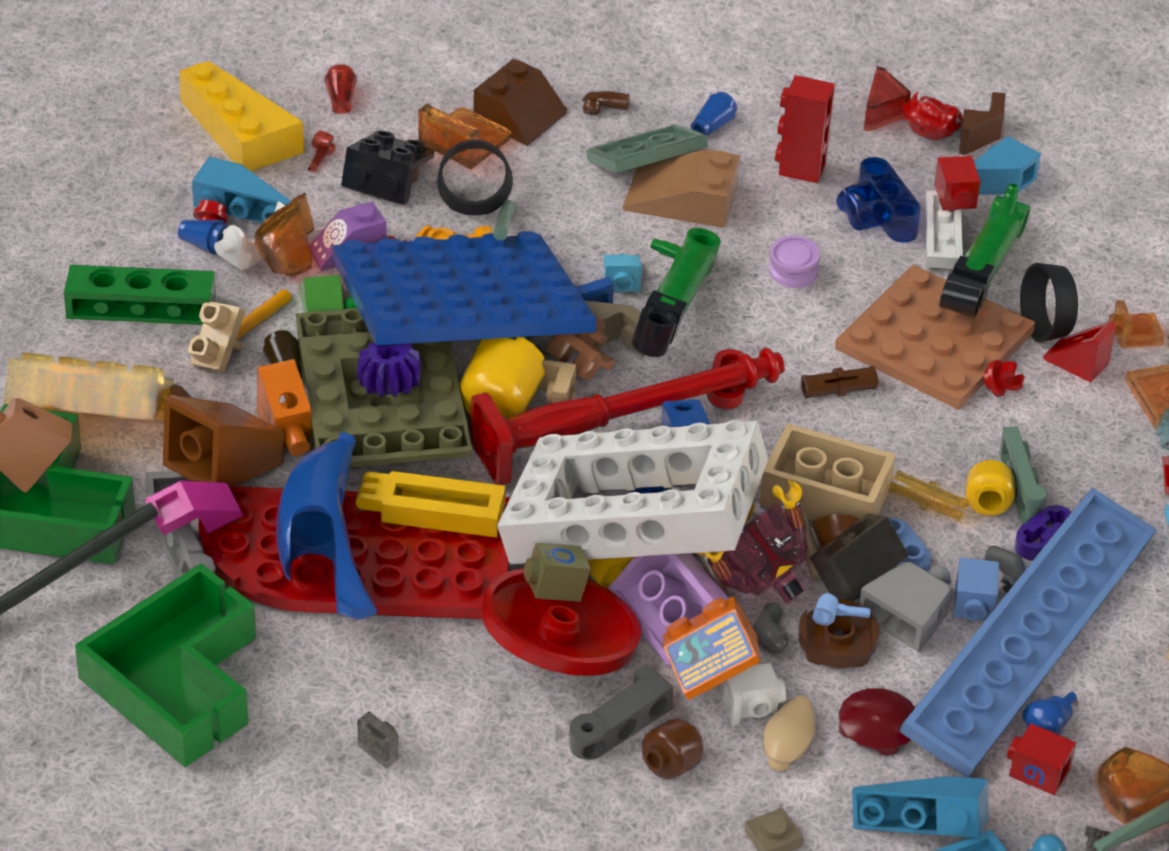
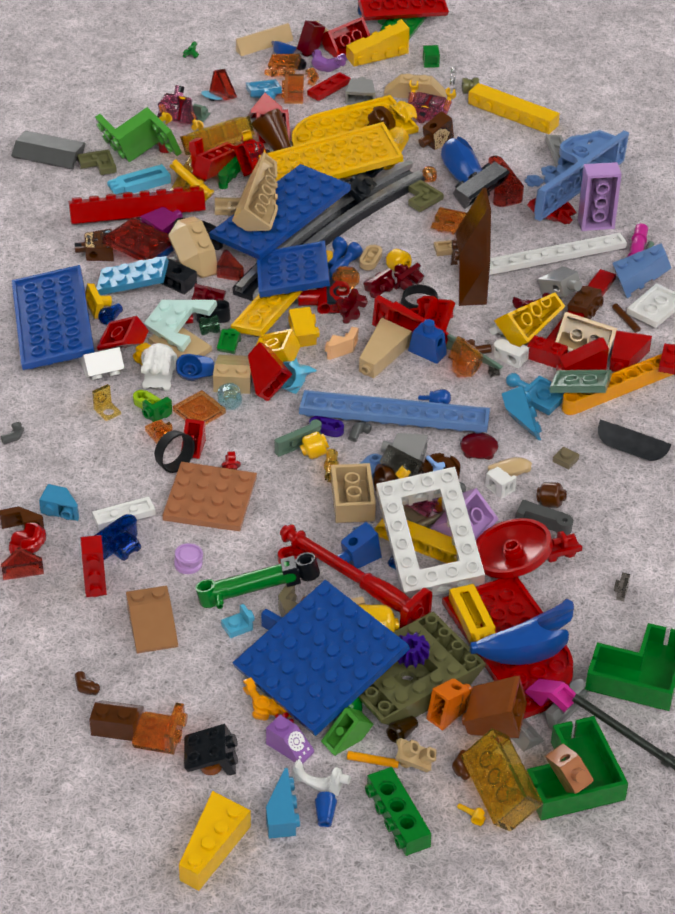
camera: 115 degrees left, 0 degrees up
(210, 211) = (308, 812): red plate -> none
(284, 238) = (316, 755): clear orange helmet -> none
(323, 144) = (205, 792): clear red hand -> none
(341, 87) = (147, 807): clear red cone -> none
(475, 207) = (201, 712): black tyre -> none
(504, 220) = (235, 675): sand green bar -> none
(526, 698) = (565, 546): none -> red hips
(557, 572) = (492, 549): olive brick -> none
(646, 148) = (128, 644): sand green tile -> none
(711, 646) = (499, 486): slope -> none
(715, 113) = (74, 631): blue cone -> none
(839, 382) = (269, 517): reddish brown pin -> none
(957, 182) = (96, 505): red brick -> none
(971, 275) = (177, 477): piece -> none
(975, 589) = (383, 431): medium blue brick -> none
(1041, 758) = (468, 391): red brick -> none

